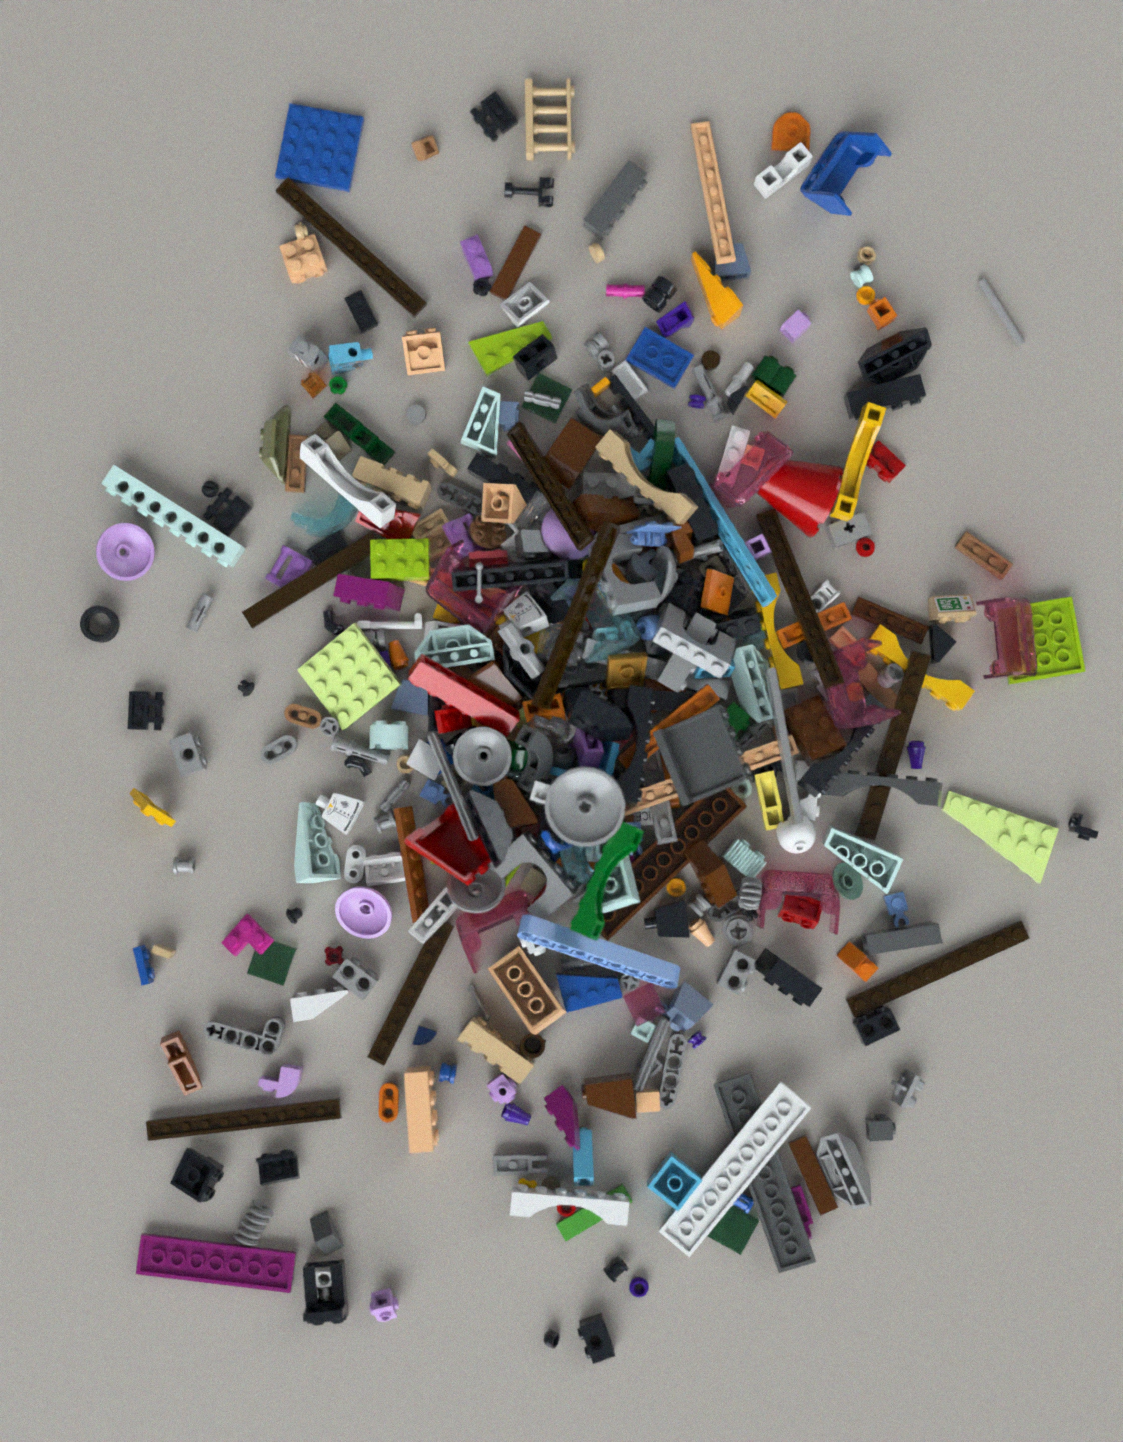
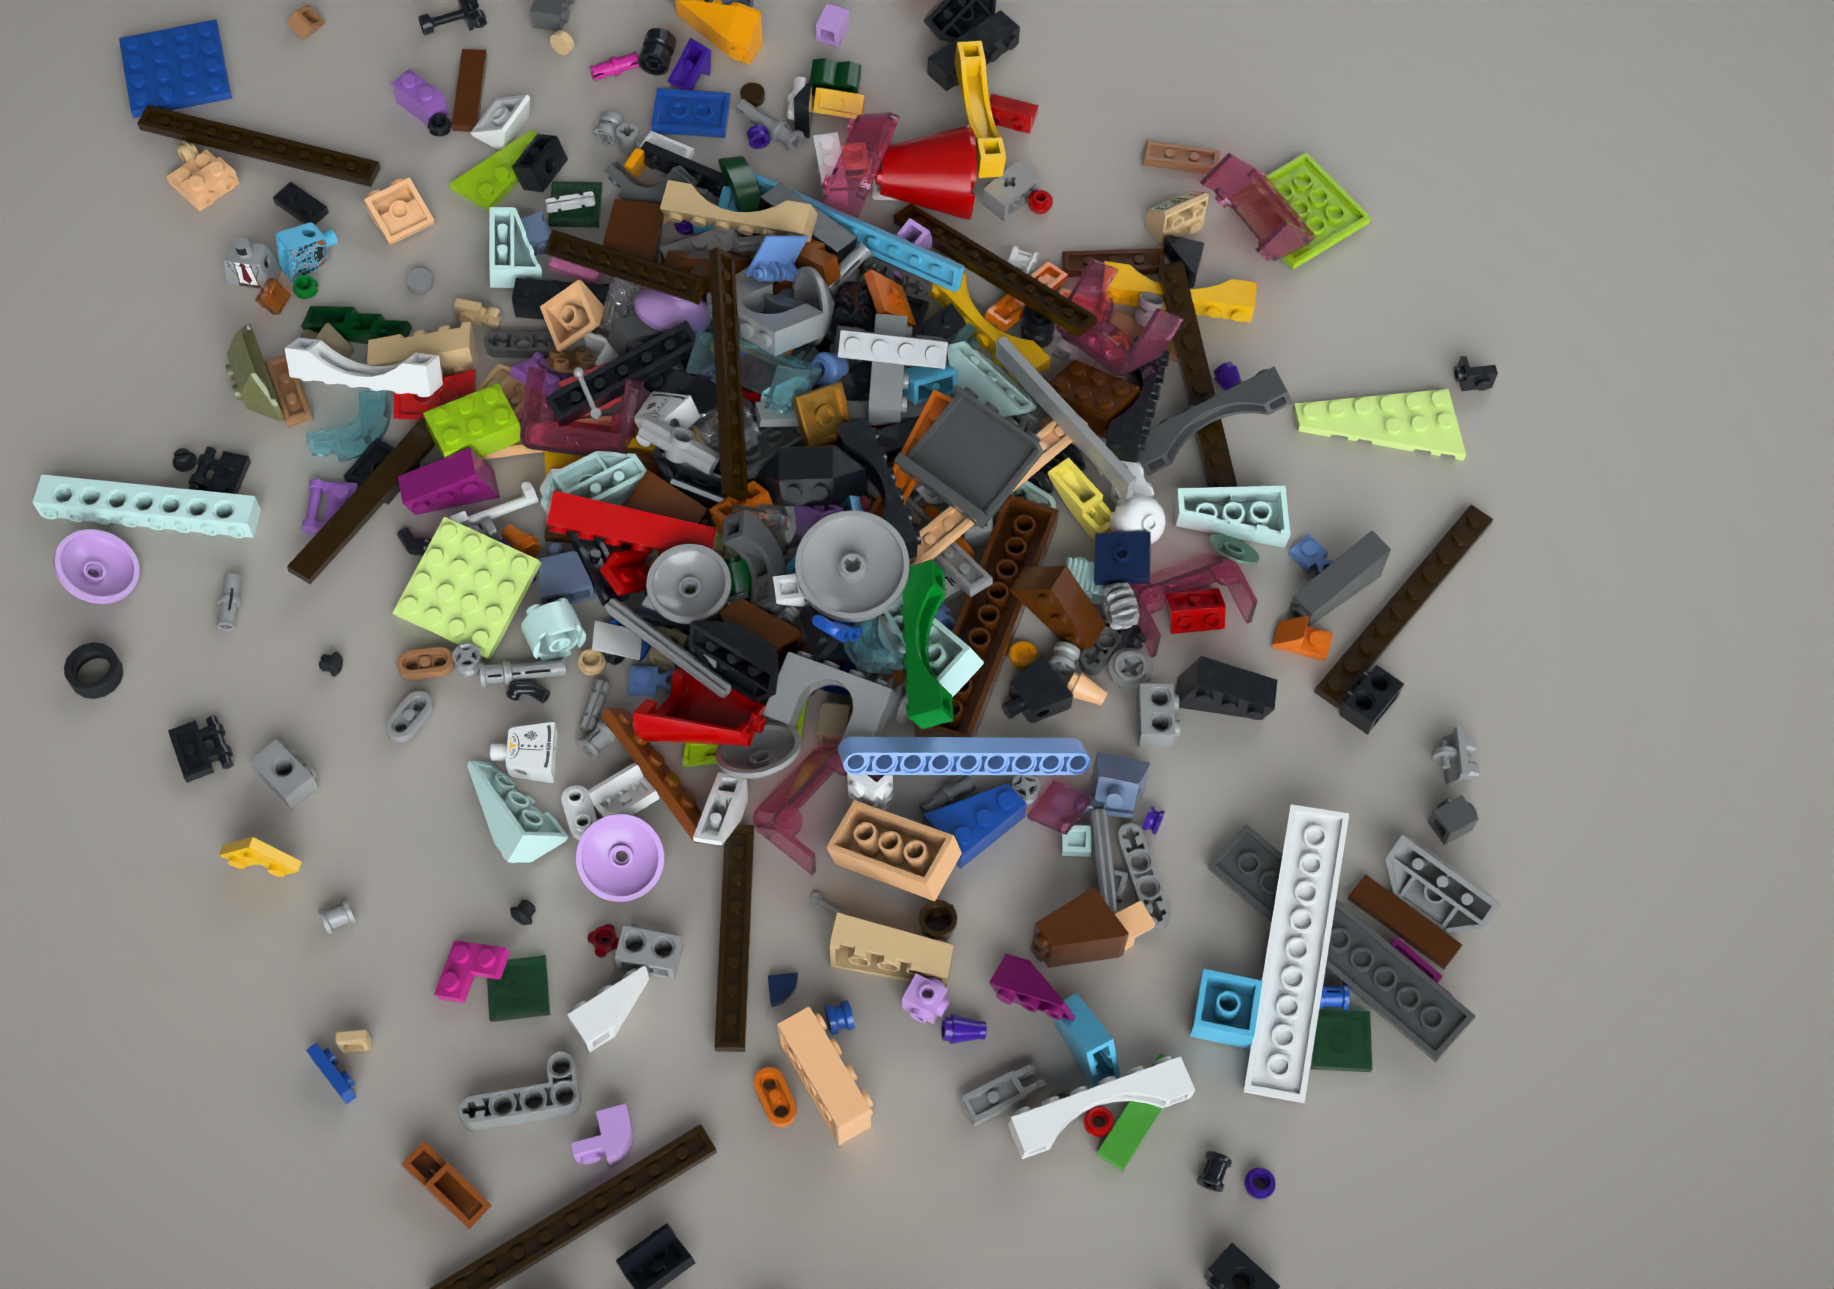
camera: 30 degrees left, 25 degrees down
(769, 860) = (1122, 558): none -> dark blue plate

